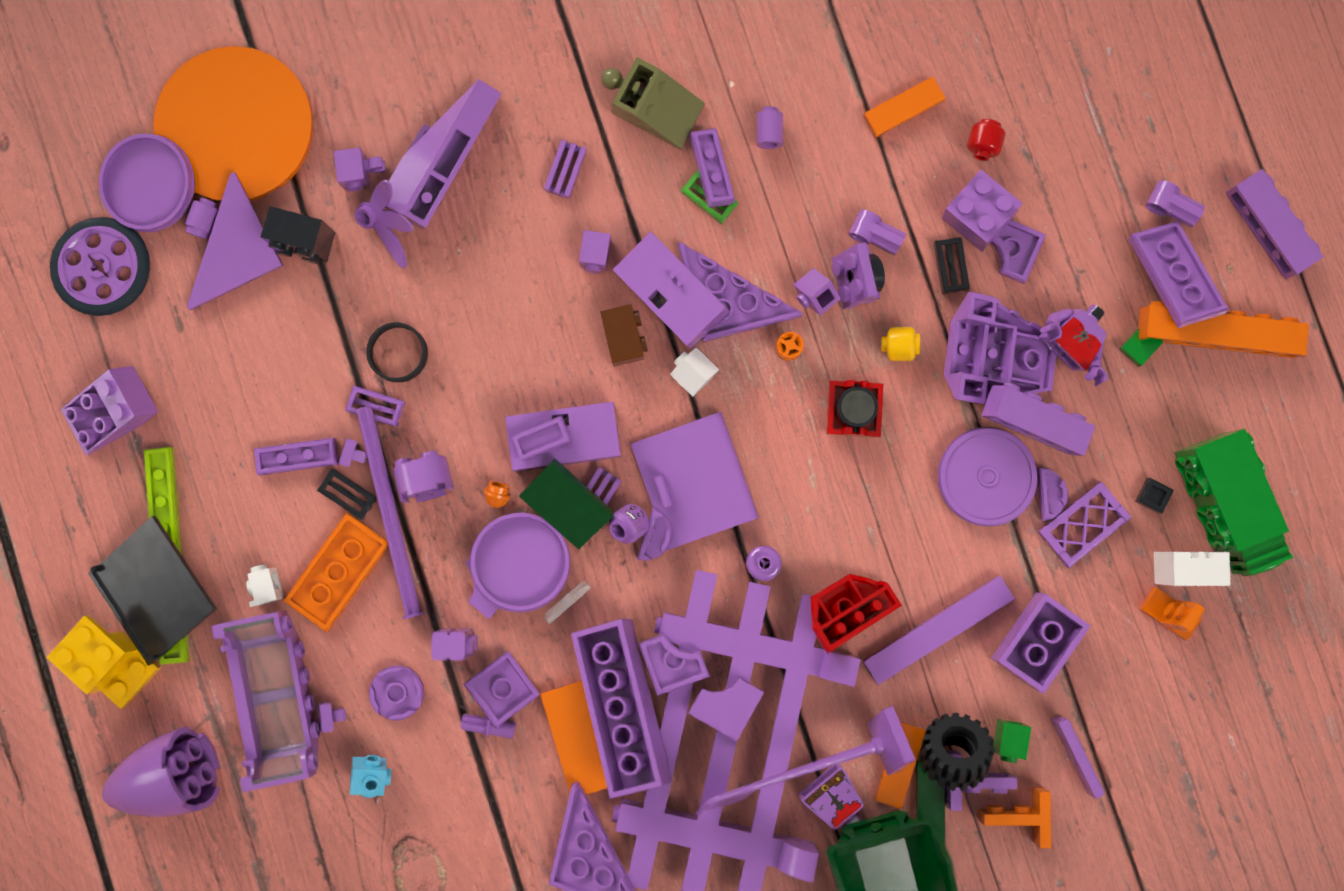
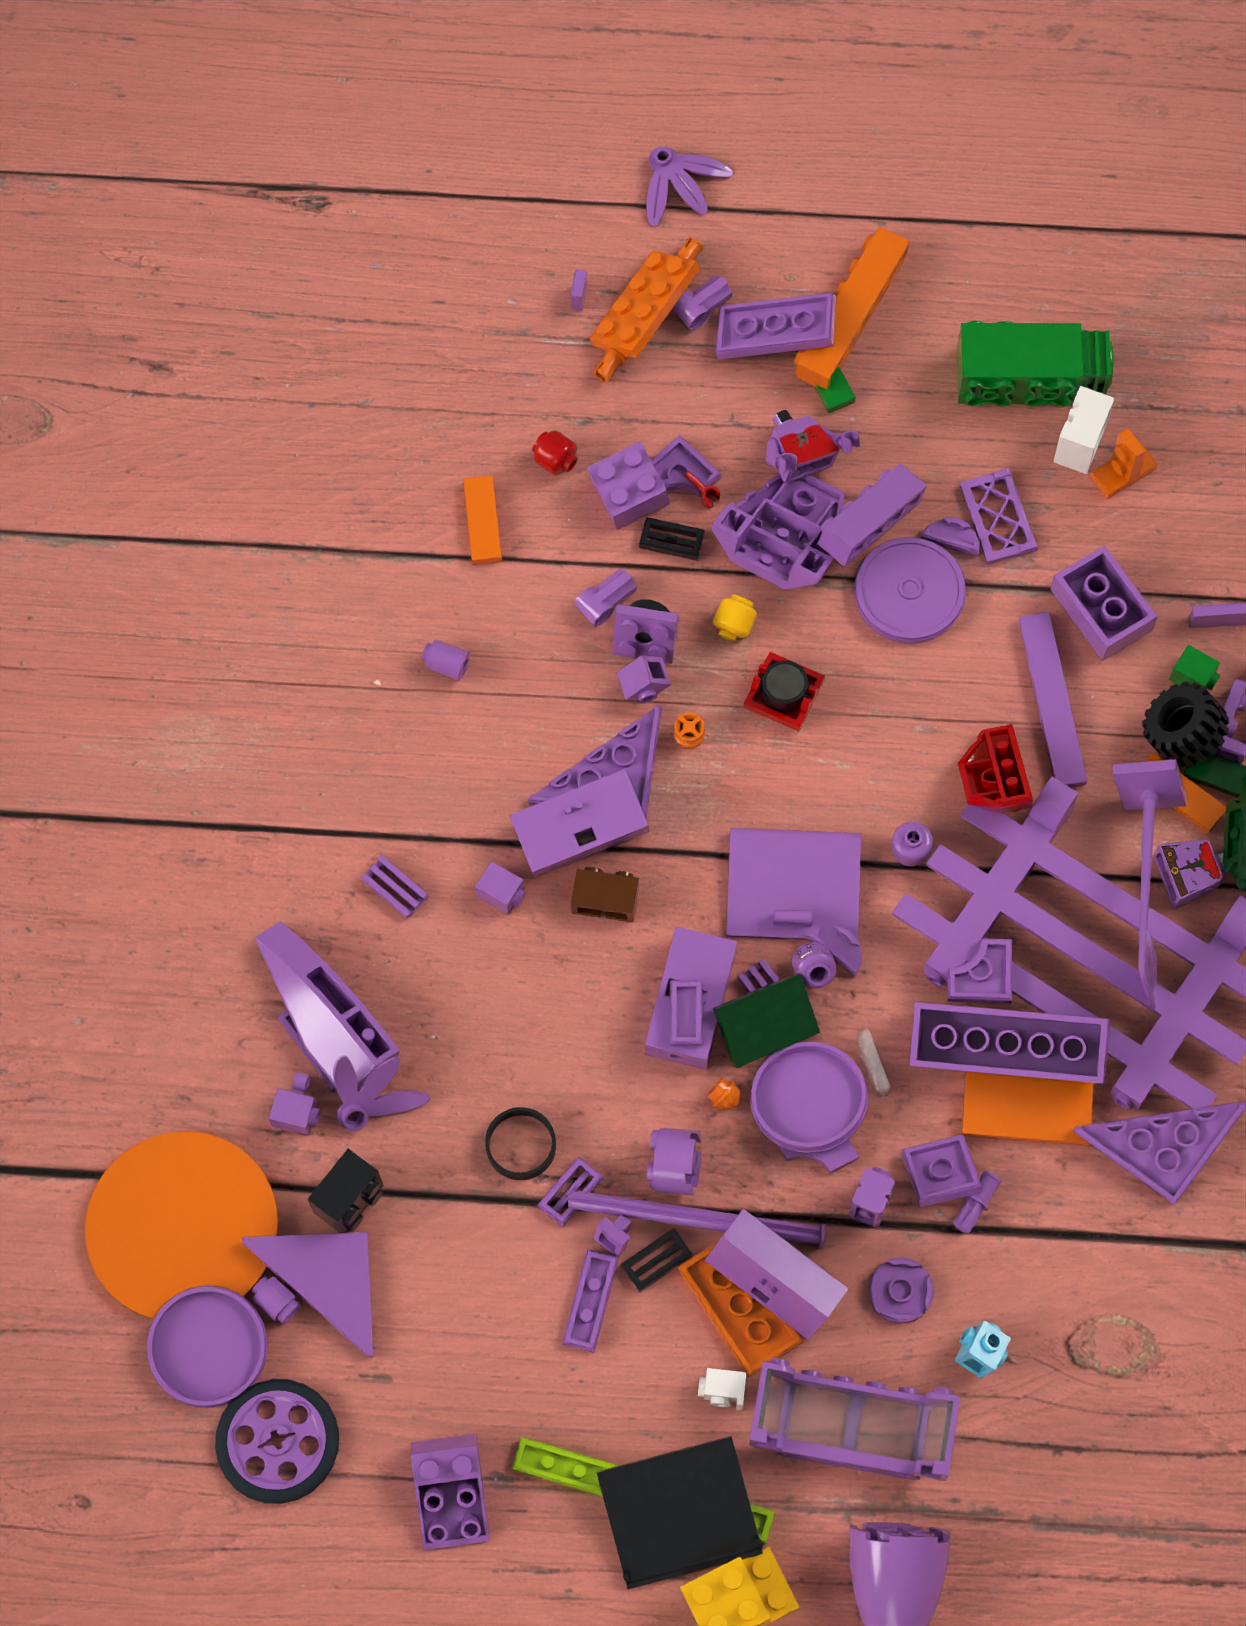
camera: 65 degrees left, 15 degrees down
(328, 716) = (898, 1371): medium lavender tile -> none
(358, 594) = (776, 1274): none -> medium lavender brick
(659, 108) = (369, 765): olive slope -> none
(693, 371) = (676, 835): white brick -> none
(699, 202) = (497, 760): bright green tile -> none
(712, 168) = (462, 734): medium lavender tile -> none
(727, 709) = (1054, 934): medium lavender tile -> none
(1005, 272) = (703, 489): none -> red hand
(1142, 99) = (578, 289): none -> medium lavender tile
(1150, 158) = (644, 306): none -> orange plate
(1154, 495) = (995, 438): black tile -> none
(1274, 224) = (763, 218): medium lavender brick -> none
(1286, 132) = (674, 170): none -> medium lavender plant

